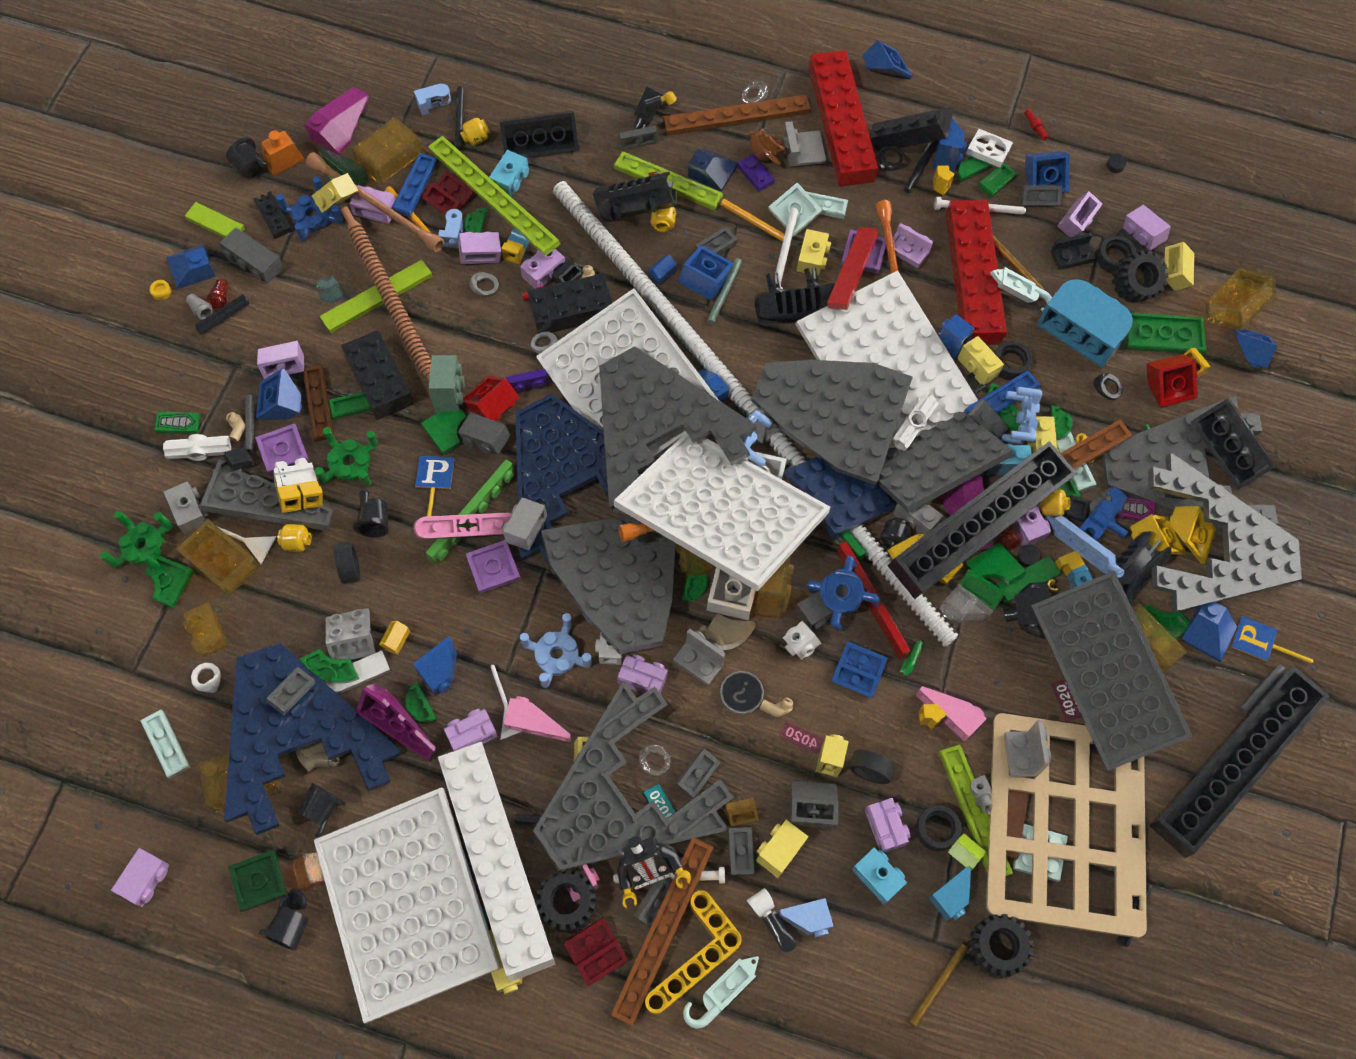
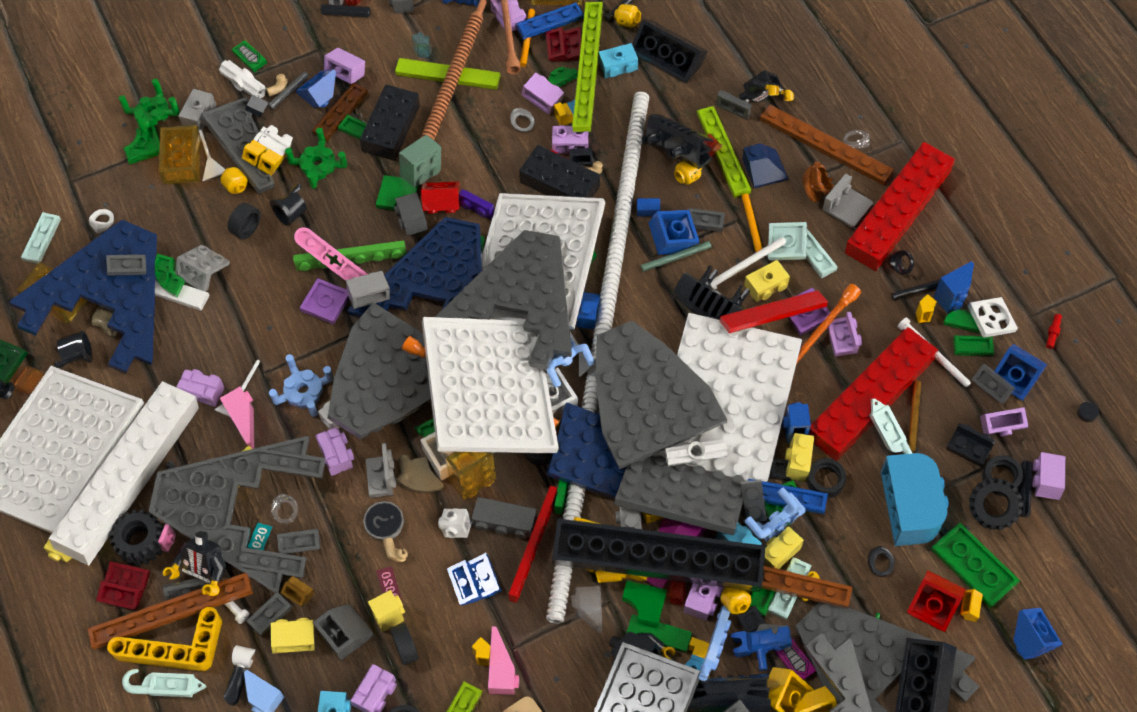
camera: 50 degrees right, 5 degrees down
(205, 630) = (129, 191): clear yellow brick -> none
(280, 446) = (289, 120): medium lavender plate -> none
(388, 715) = (167, 325): magenta wedge -> none
(395, 637) = (223, 292): yellow piece -> none
(418, 706) = (192, 344): green tile -> none
(434, 473) = (357, 215): blue piece -> none
(438, 666) = (224, 329): blue slope -> none
(453, 228) = (542, 67): light blue leg -> none
(553, 338) = (525, 190): light grey piece -> none
(755, 173) = (792, 195): dark purple plate -> none
(851, 601) = (515, 523): blue plate -> none
(886, 60) = (985, 192): blue slope -> none
(895, 532) = (600, 513): black head -> none
(910, 663) = (510, 608): green piece -> none
(912, 129) = (937, 252): black slope -> none
(982, 589) = (615, 607): green tile -> none
(1028, 555) = (678, 618): black tile -> none
(1062, 421) = (810, 552): green tile -> none
(1180, 266) = (1041, 525): light yellow brick -> none
(1240, 299) = (1061, 590): clear yellow brick -> none

